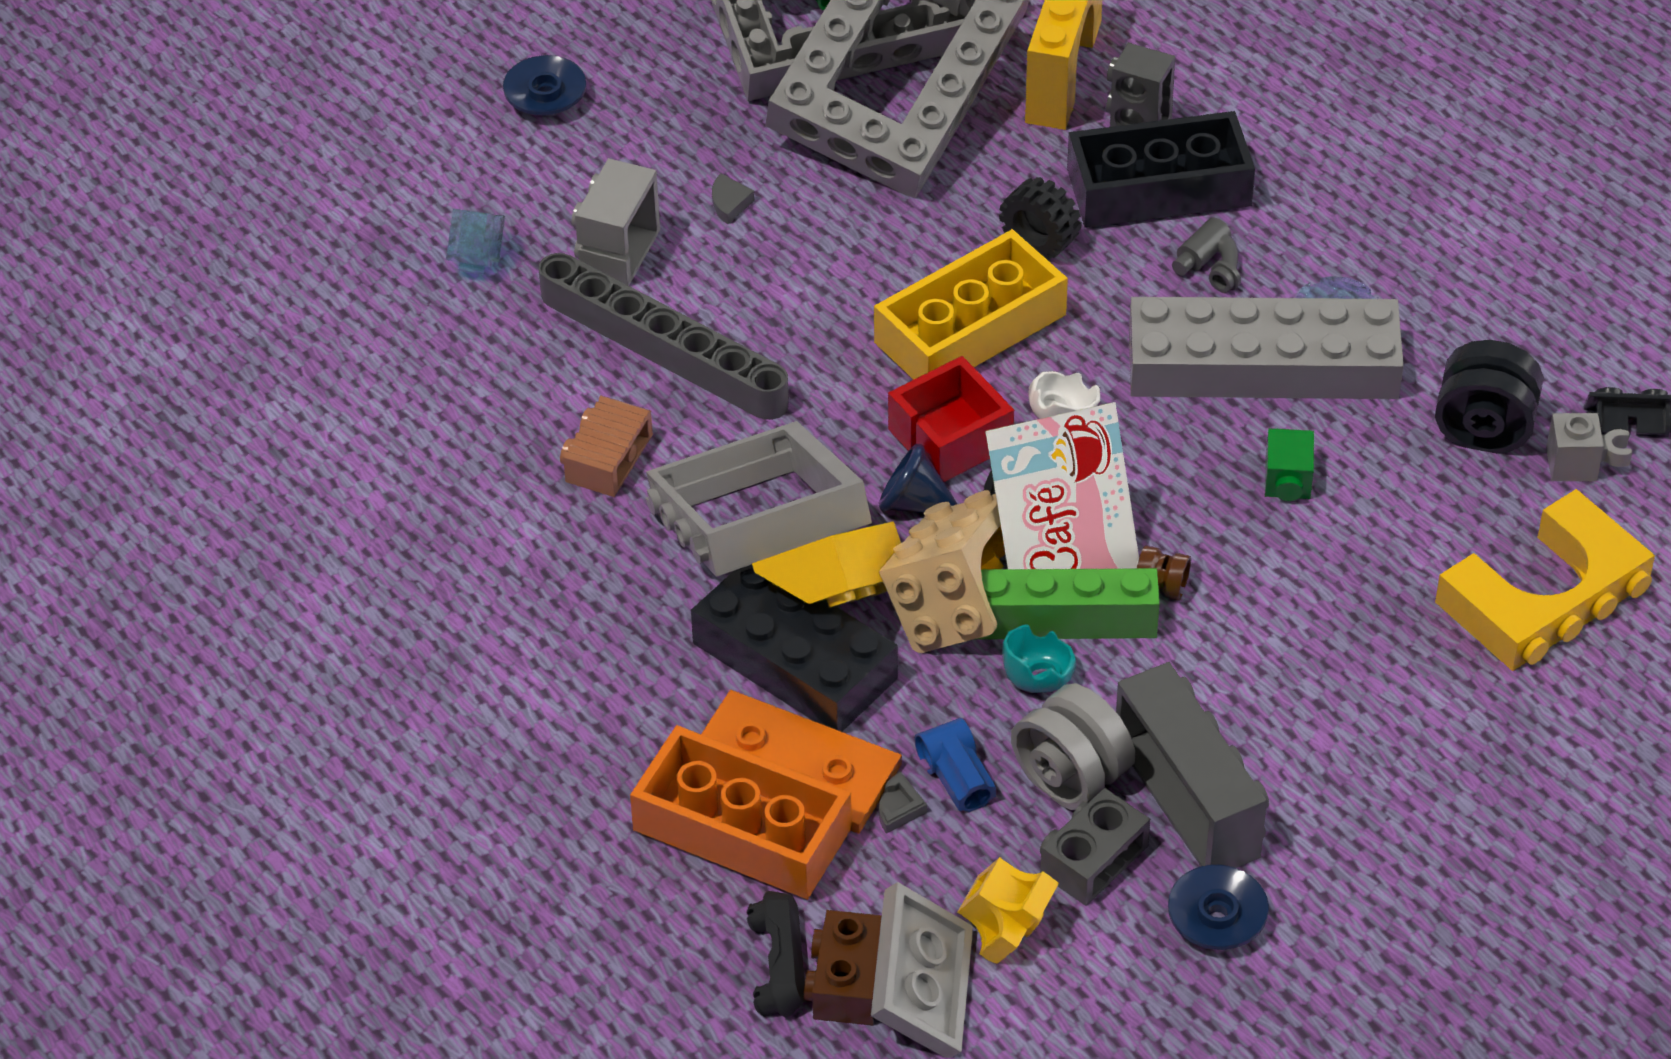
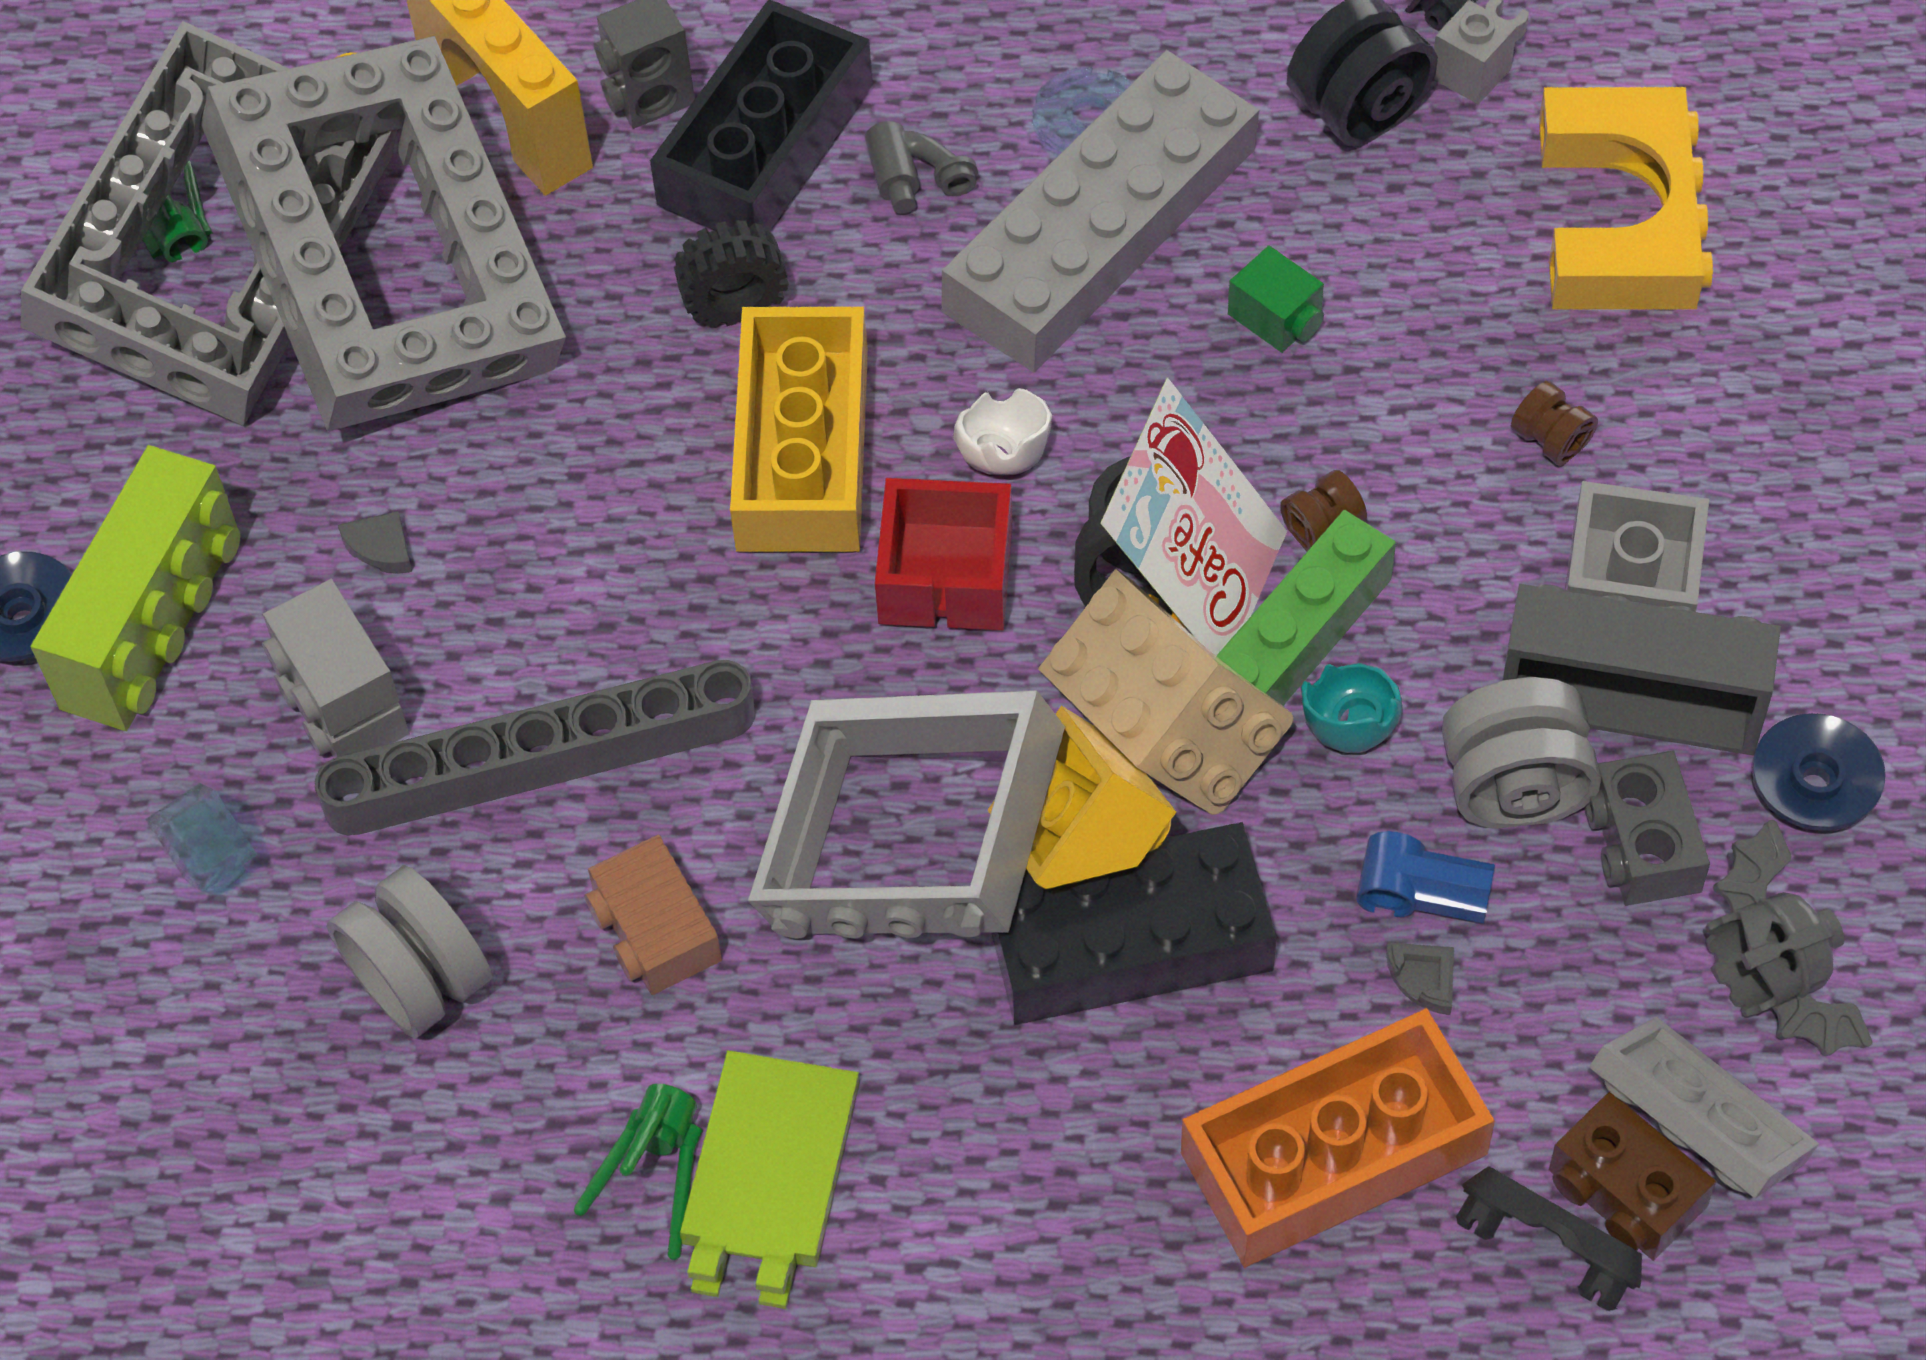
camera: 50 degrees left, 10 degrees up
(481, 354) = (409, 951): none -> light grey wheel
(486, 526) = (656, 1127): none -> green plant
(499, 591) = (767, 1170): none -> lime tile
(592, 115) = (137, 589): none -> lime brick
(807, 749) = (1270, 1023): orange plate -> none
(915, 485) = (1006, 645): dark blue hat -> none
(1006, 907) = (1680, 966): yellow brick -> none
(1067, 949) = (1779, 949): none -> dark grey helmet
(1276, 727) = (1637, 545): none -> light grey brick
(1340, 642) = (1554, 423): none -> reddish brown wheel

